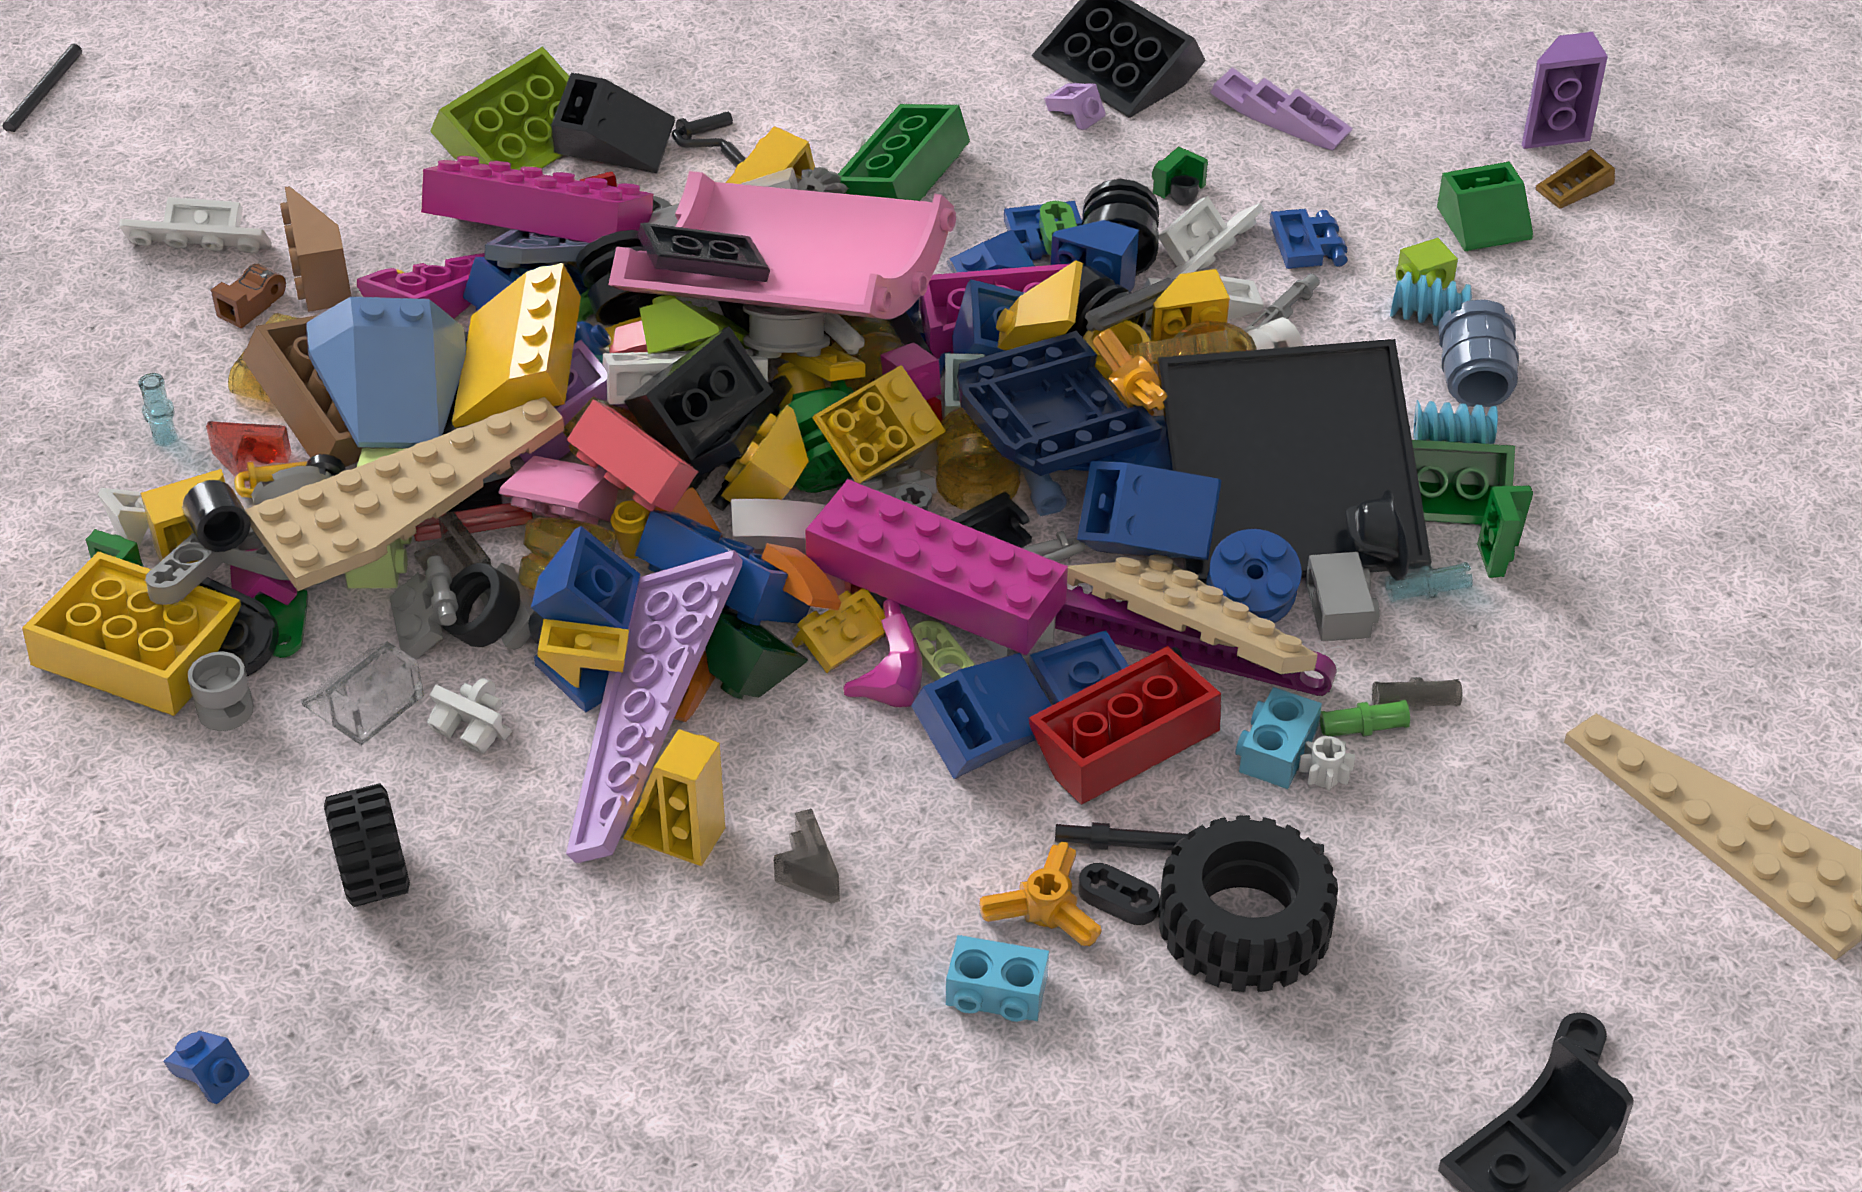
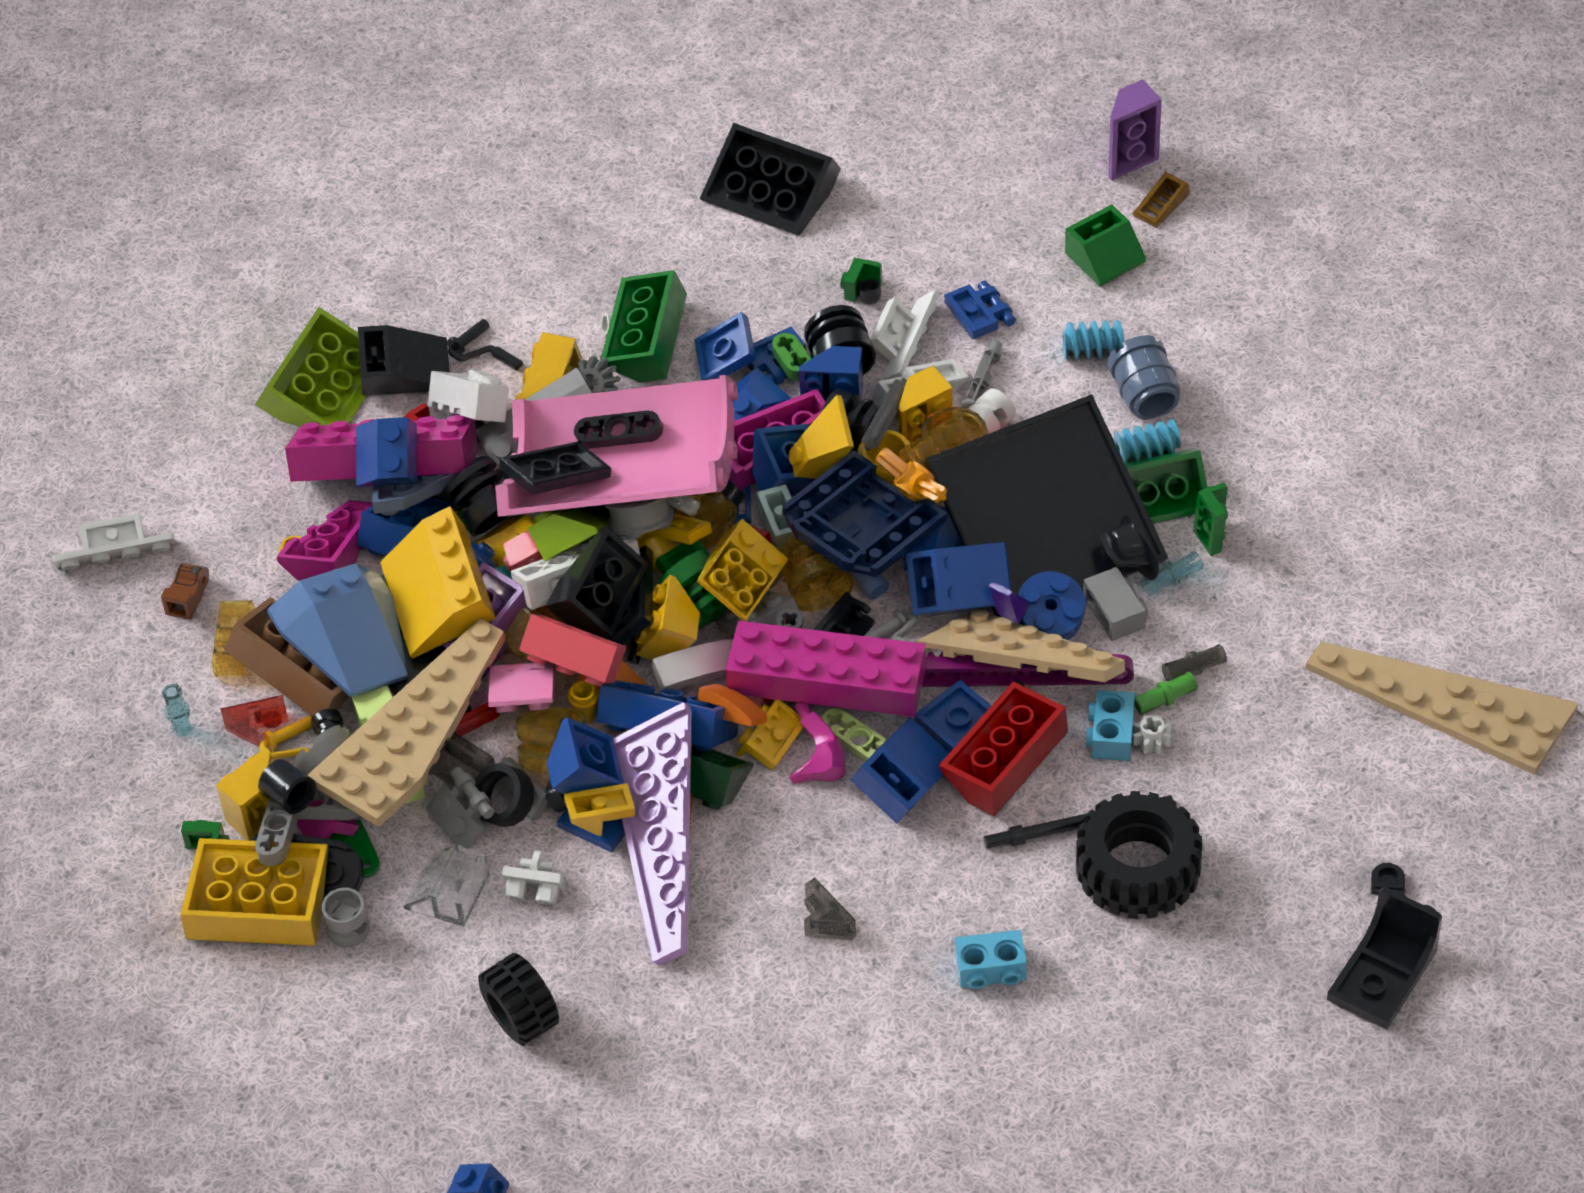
camera: 15 degrees left, 5 degrees up
(125, 513) = (200, 798): white slope -> none
(314, 253) = (226, 541): medium nougat slope -> none
(530, 196) = (386, 452): none -> blue slope
(659, 167) = (470, 395): none -> white wedge
(682, 800) = (722, 900): yellow wedge -> none
(813, 244) = (640, 419): none -> black beam
(918, 364) = (736, 508): dark pink brick -> none
(986, 203) = (725, 348): none -> blue plate
(1046, 899) = (1000, 892): light orange bush -> none
(1079, 100) = (755, 232): lavender bracket -> none
(1118, 893) = (1046, 873): black beam -> none
(1198, 552) = (1008, 603): none -> dark purple slope
(1290, 113) = (909, 197): lavender slope -> none
(1428, 259) = (1077, 307): lime brick -> none

